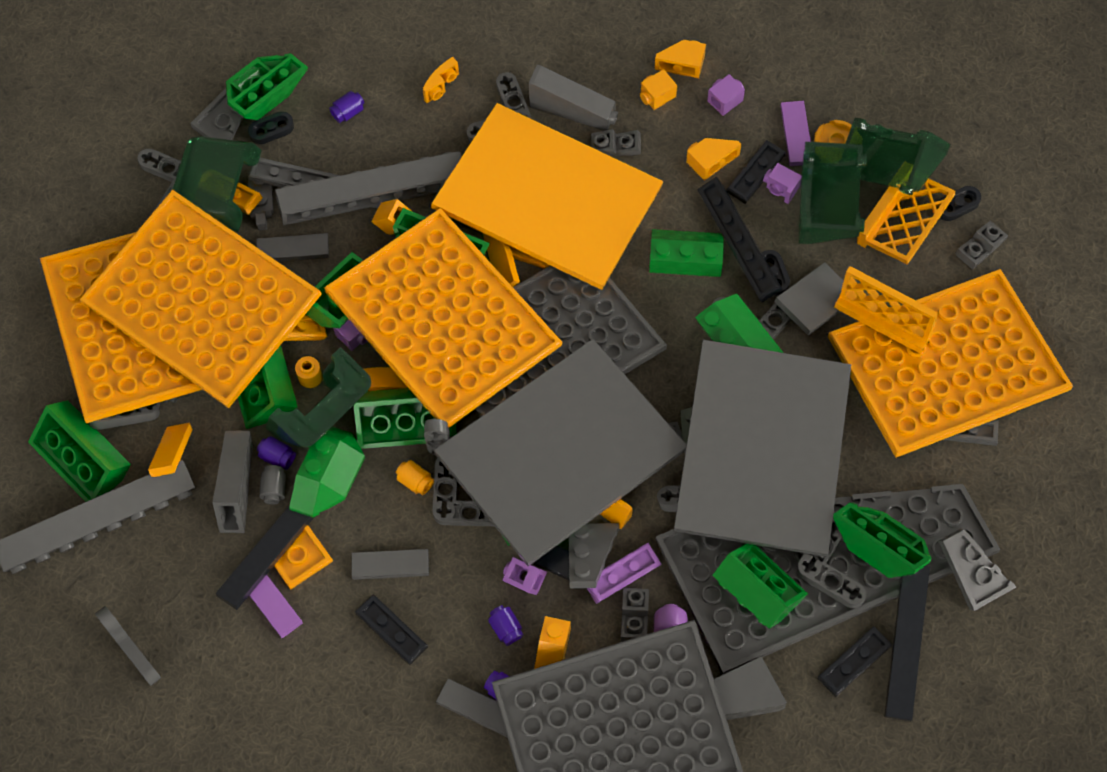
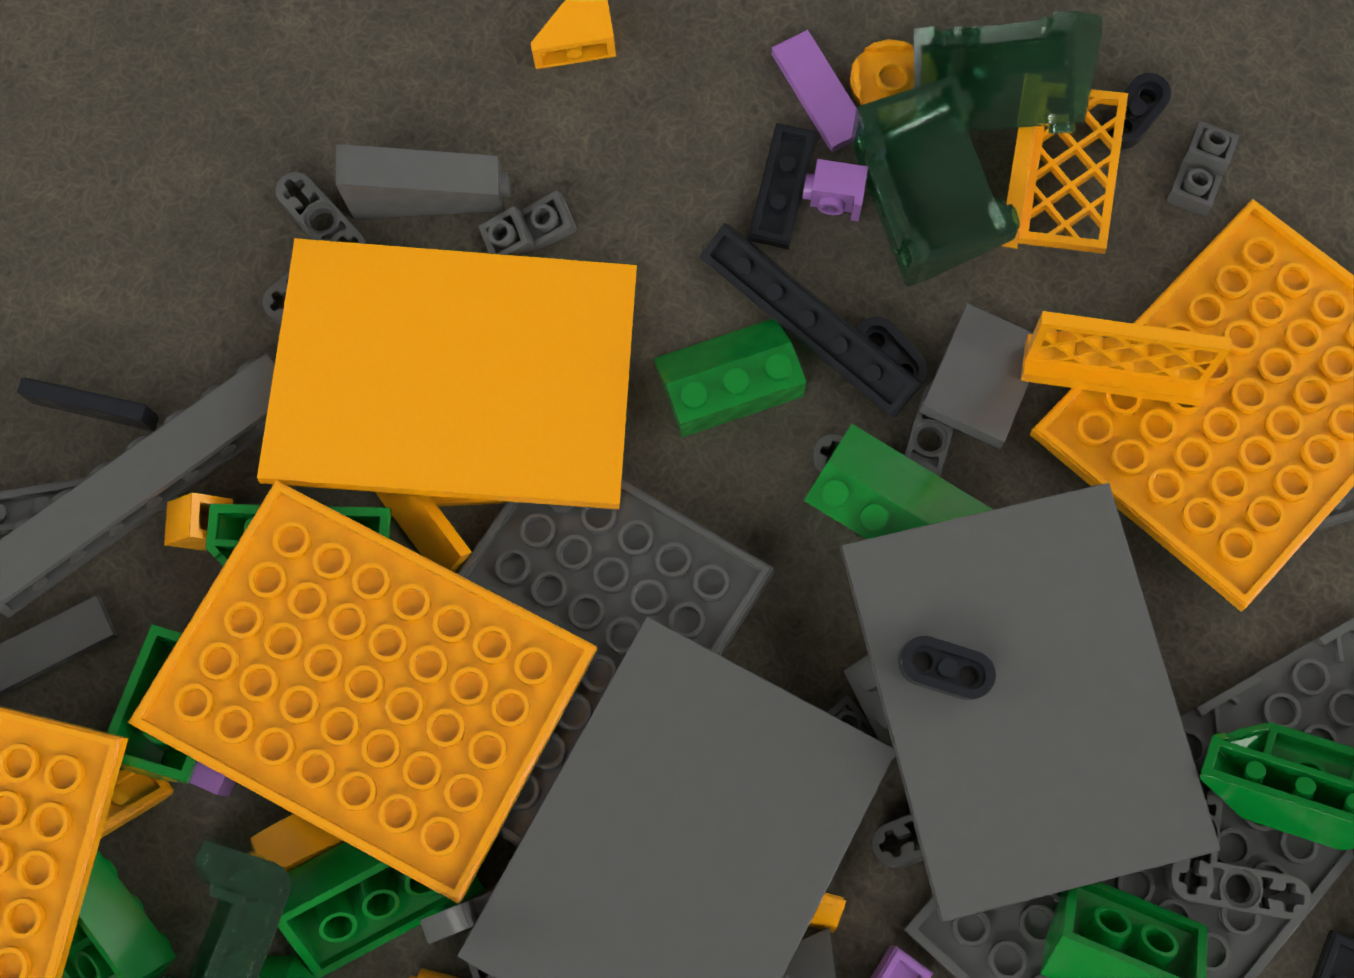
camera: 20 degrees left, 10 degrees up
(308, 372) = (181, 879): light orange brick -> none
(347, 106) = (35, 345): dark purple brick -> none
(361, 143) = (88, 404): none -> black tile
(435, 85) = (173, 247): light orange slope -> none
(658, 89) = (558, 104): light orange brick -> none
(712, 155) = (698, 187): light orange slope -> none
(726, 94) = (675, 68): medium lavender brick -> none
(729, 411) = (945, 668): none -> black plate

